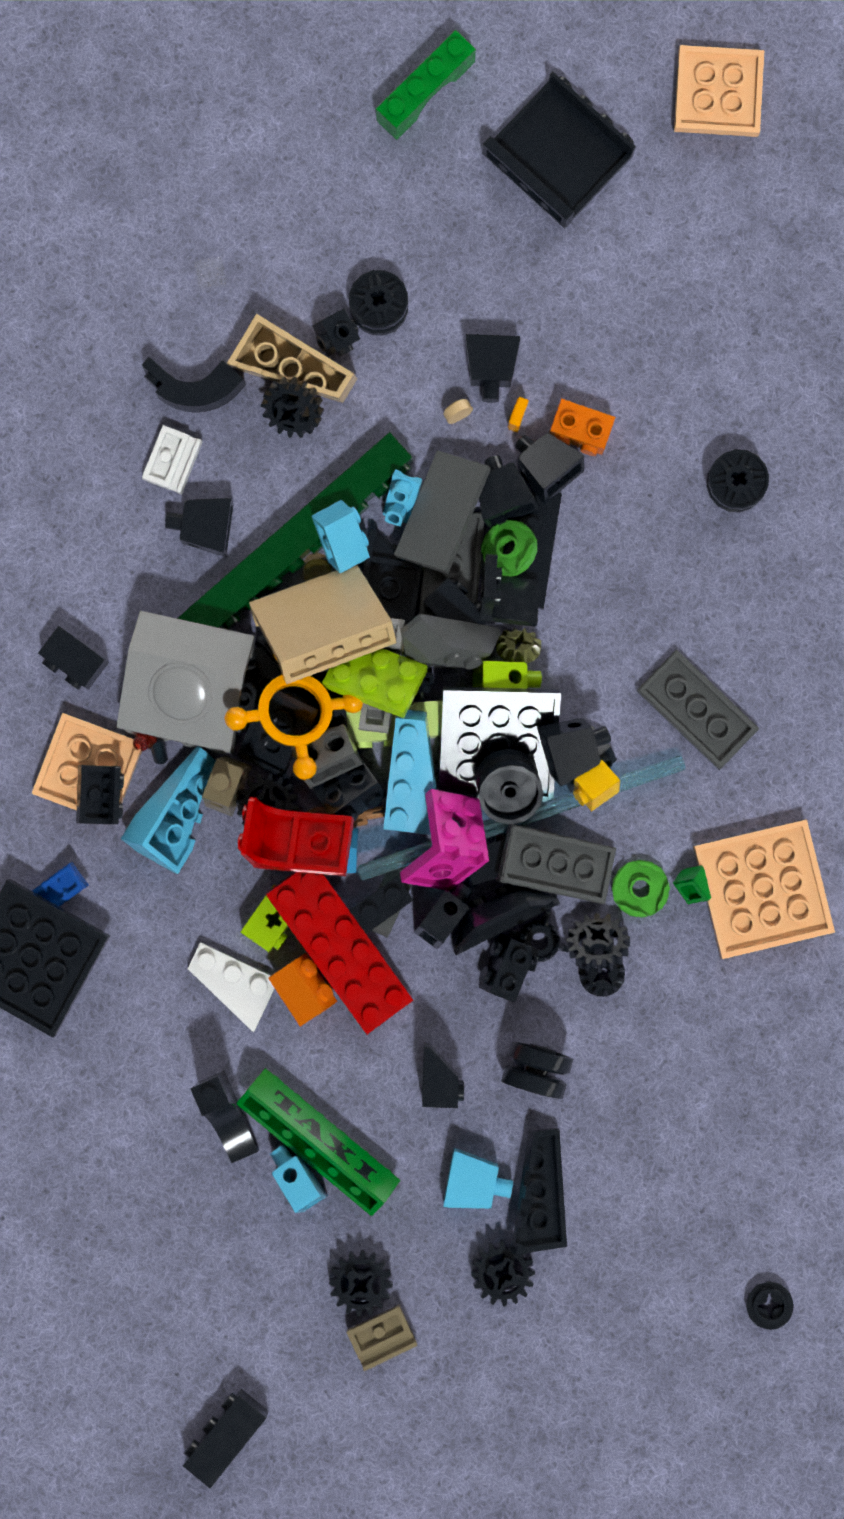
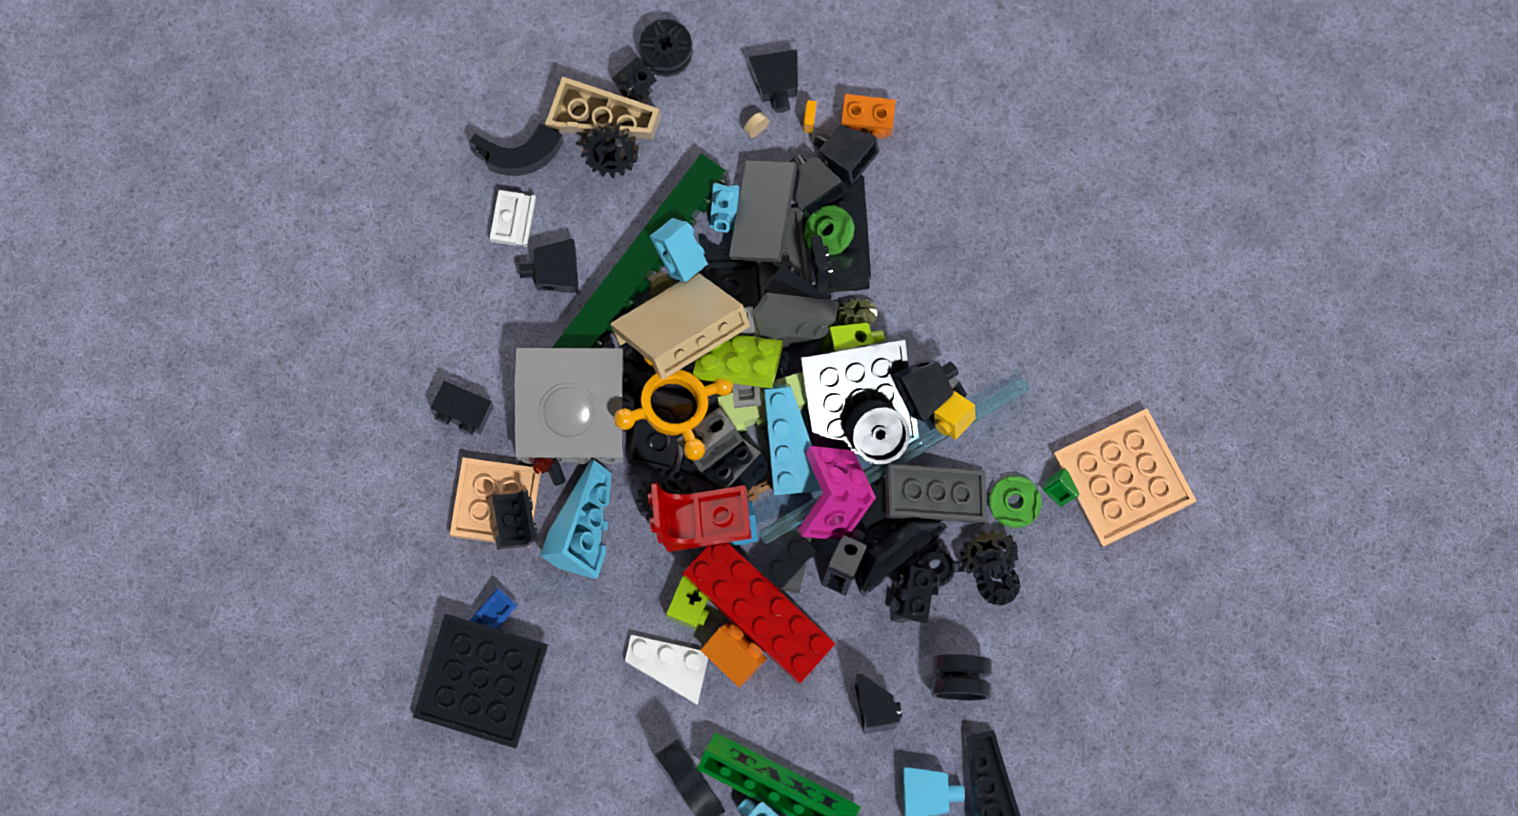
camera: 15 degrees left, 10 degrees down
(224, 784) = (623, 490): dark tan torso -> none
(697, 709) = (1027, 335): dark grey tile -> none
(744, 496) = (1025, 142): black wheel -> none

